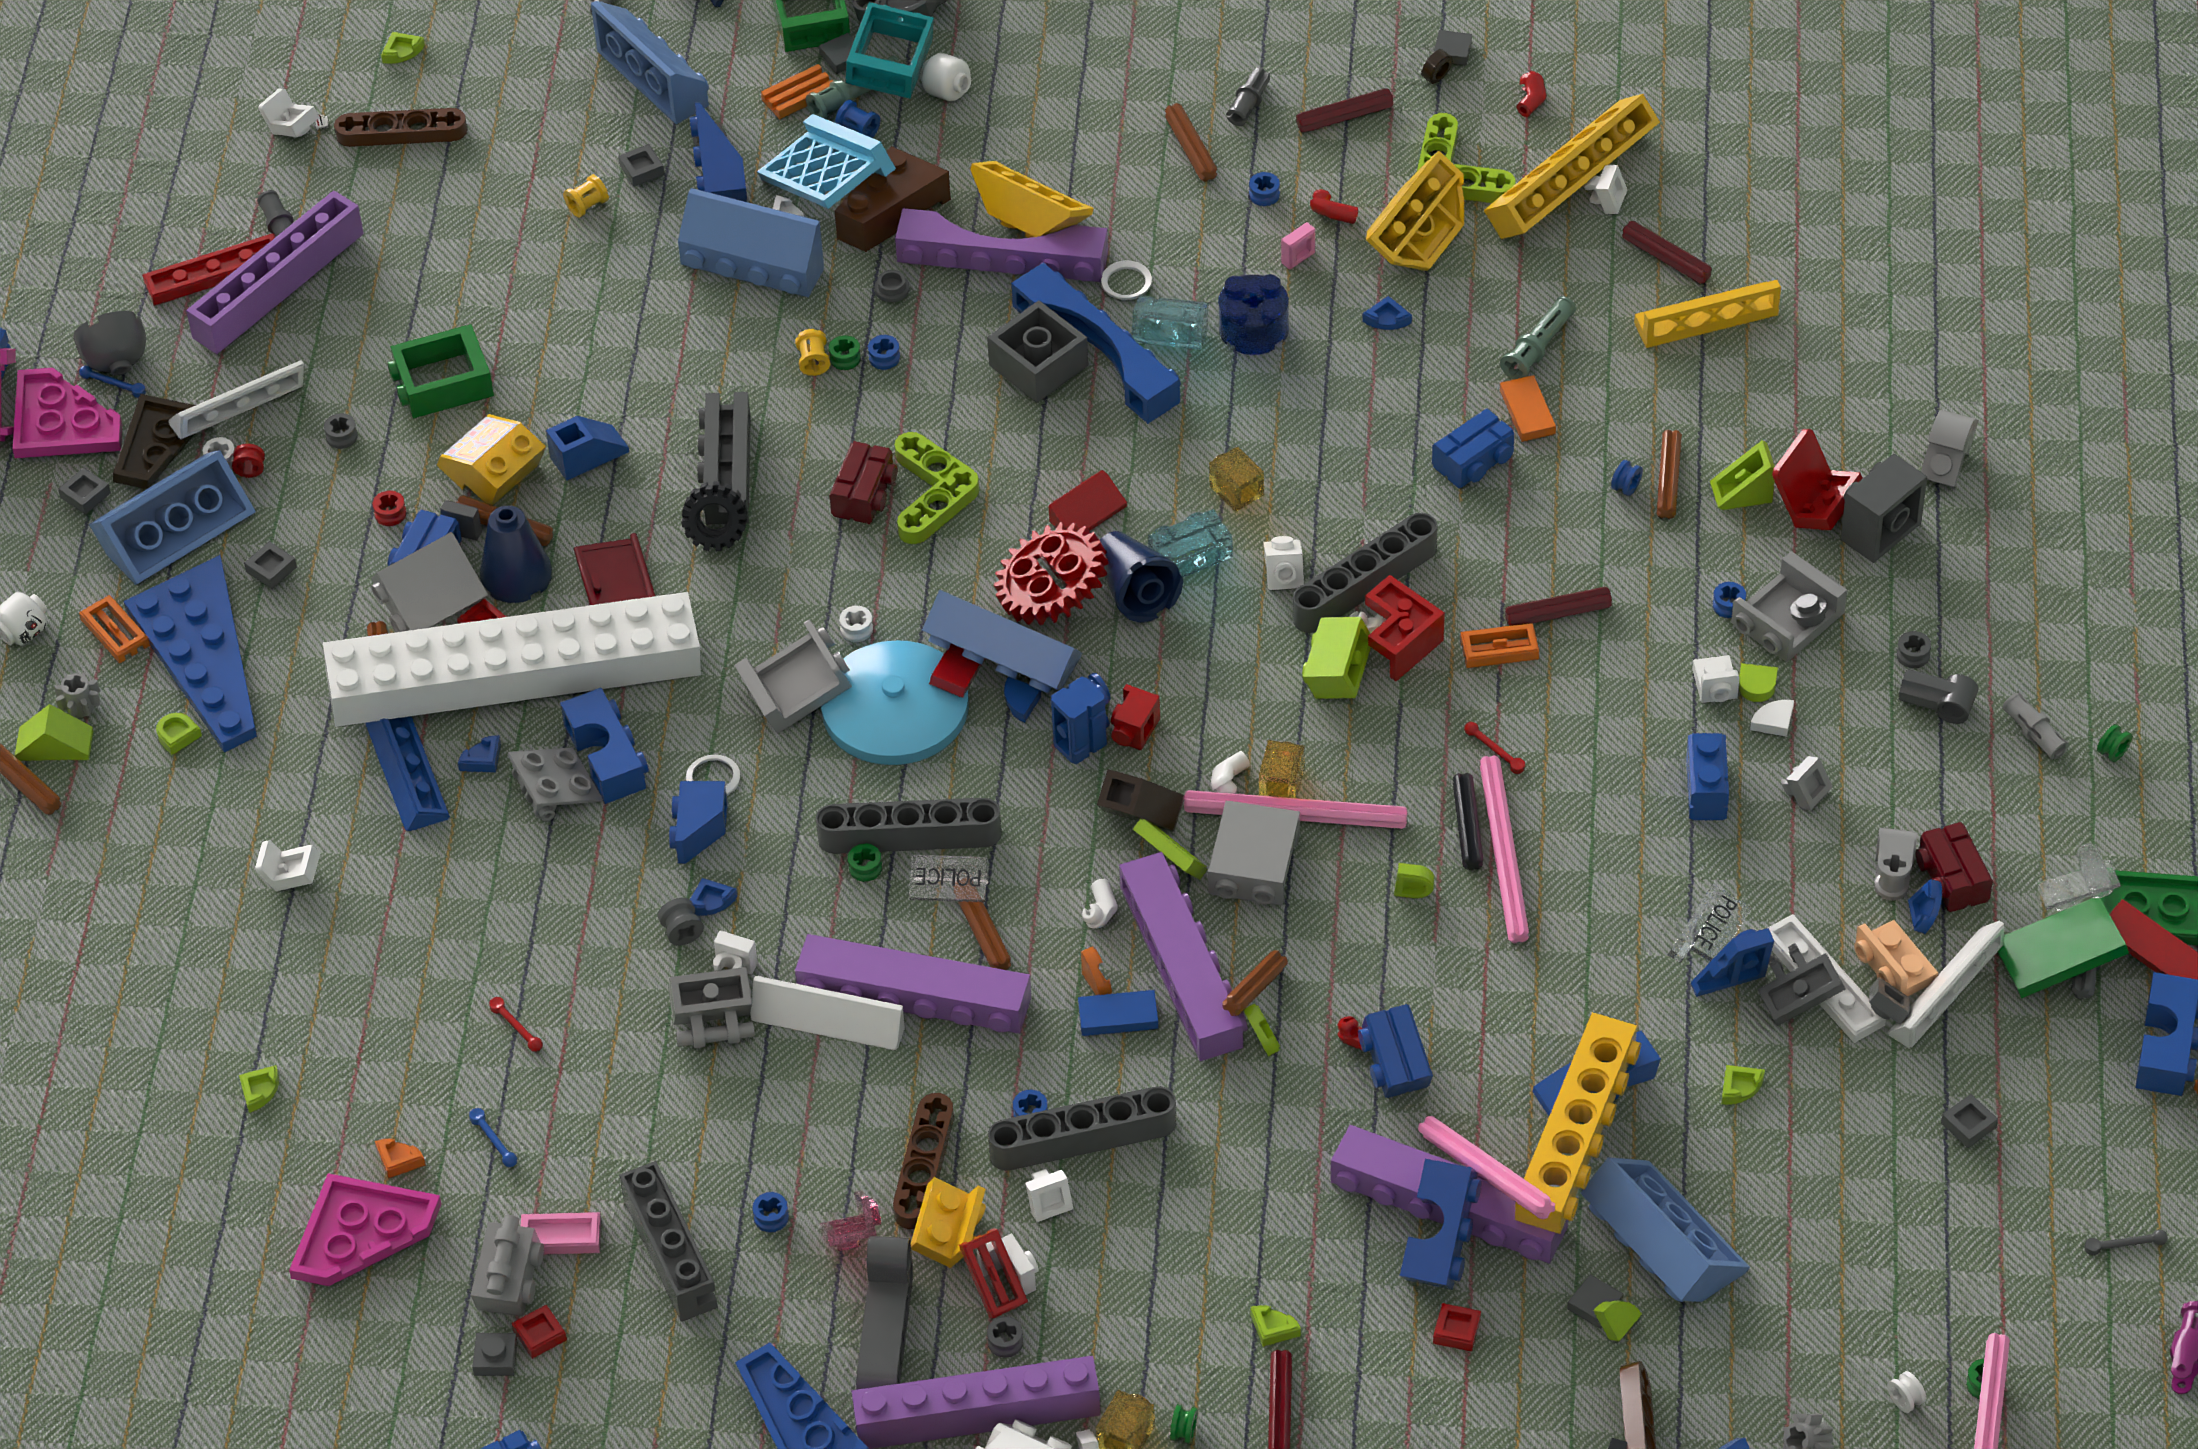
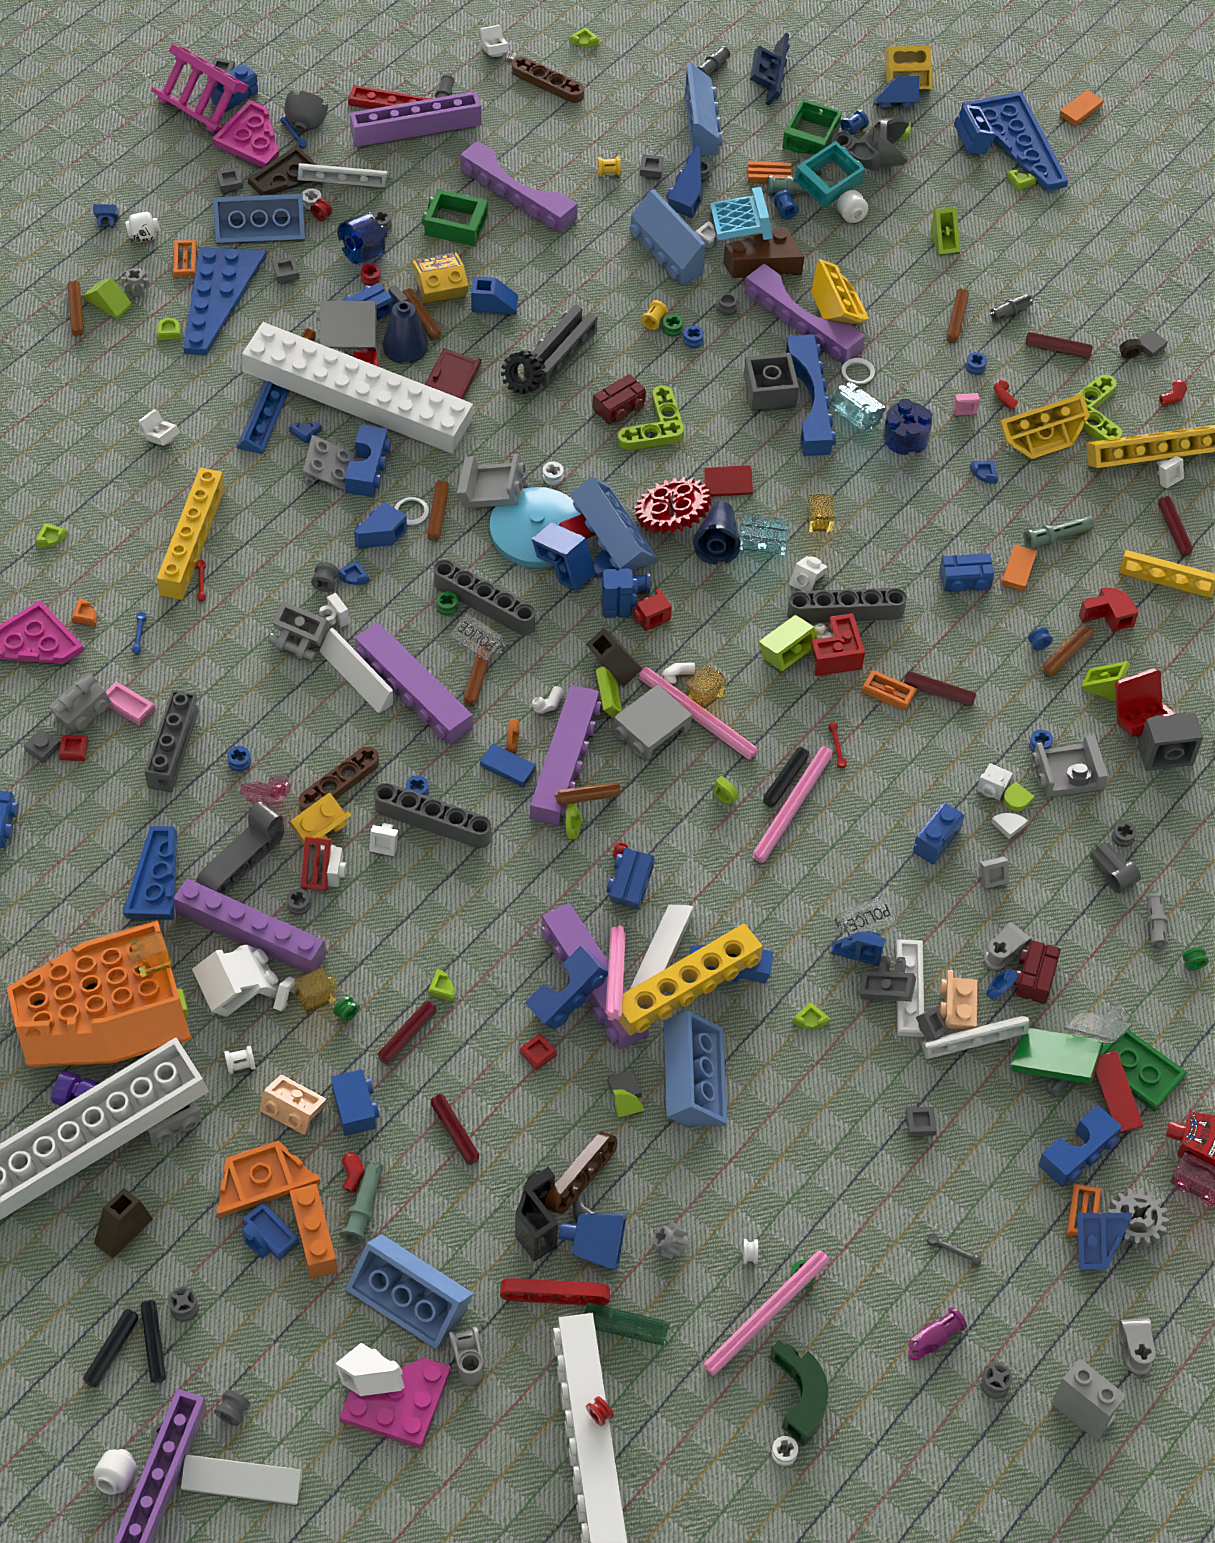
camera: 30 degrees right, 5 degrees up
(345, 465) = (362, 238): none -> clear blue brick
(455, 971) = (190, 534): none -> yellow brick
(555, 291) = (549, 207): none -> medium lavender arch
(749, 755) = (437, 510): none -> dark orange axle
(973, 706) = (567, 553): none -> blue brick
(1089, 44) = (945, 230): none -> lime slope
(1498, 1107) = (664, 942): none -> white slope
(1682, 389) = (1113, 605): none -> red brick

